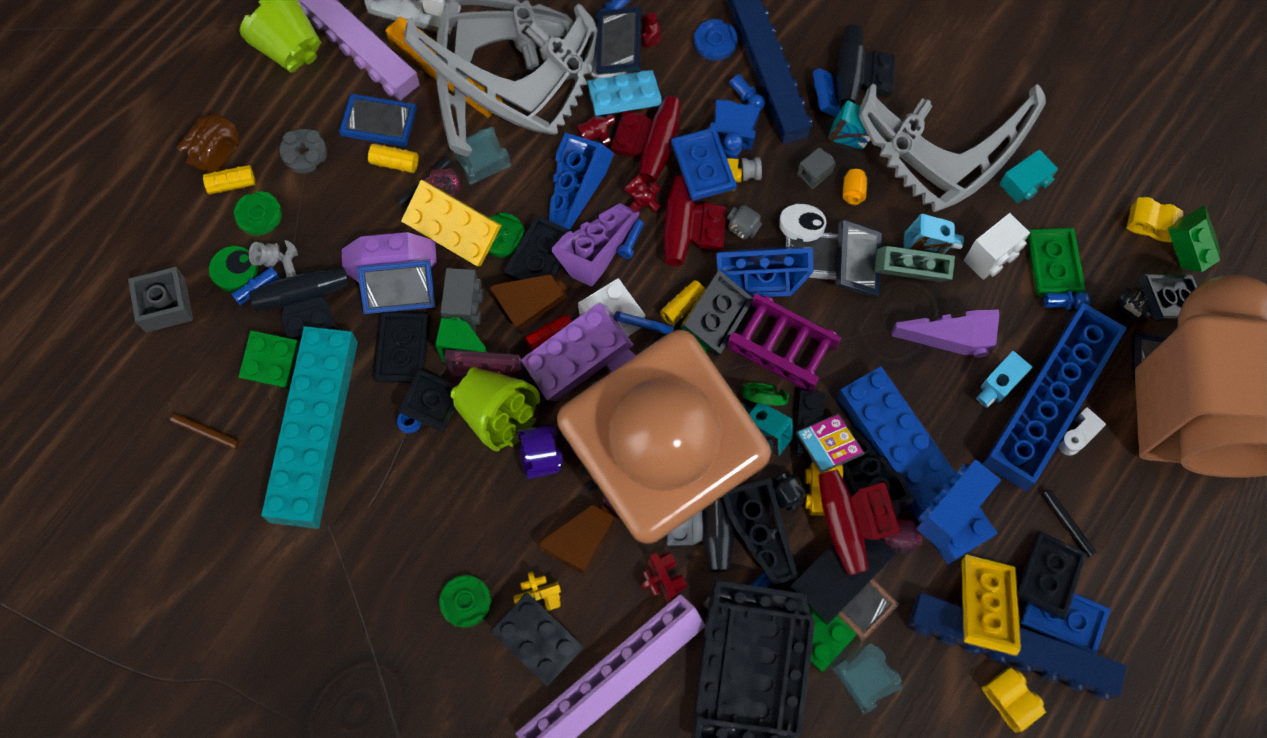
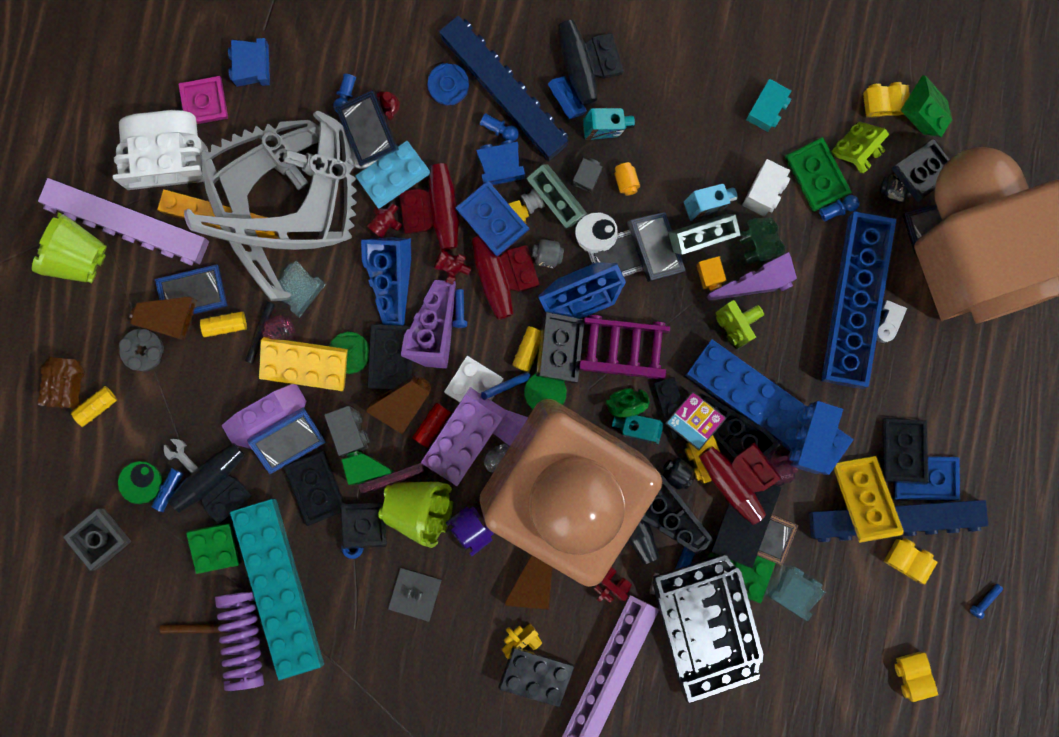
camera: 20 degrees left, 15 degrees up
(220, 500) = (245, 618): none -> medium lavender piece
(257, 213) = (133, 424): green tile -> none
(263, 254) = (160, 461): light grey wheel -> none
(342, 125) = (165, 316): none -> reddish brown slope
(449, 498) = (415, 594): none -> dark grey piece
(465, 601) = (472, 667): green tile -> none
(732, 145) = (509, 190): blue pin -> none
(777, 171) = (556, 196): none -> sand green brick
(906, 305) = (711, 273): none -> light orange brick
(915, 363) = (738, 323): none -> lime plate
(936, 164) = (693, 129): light grey piece -> none
(976, 290) = (766, 240): none -> clear green plate
(1008, 375) = (818, 298): medium azure torso -> none
(1069, 523) = (905, 400): black bar -> none
(1113, 244) = (860, 144): none -> lime plate

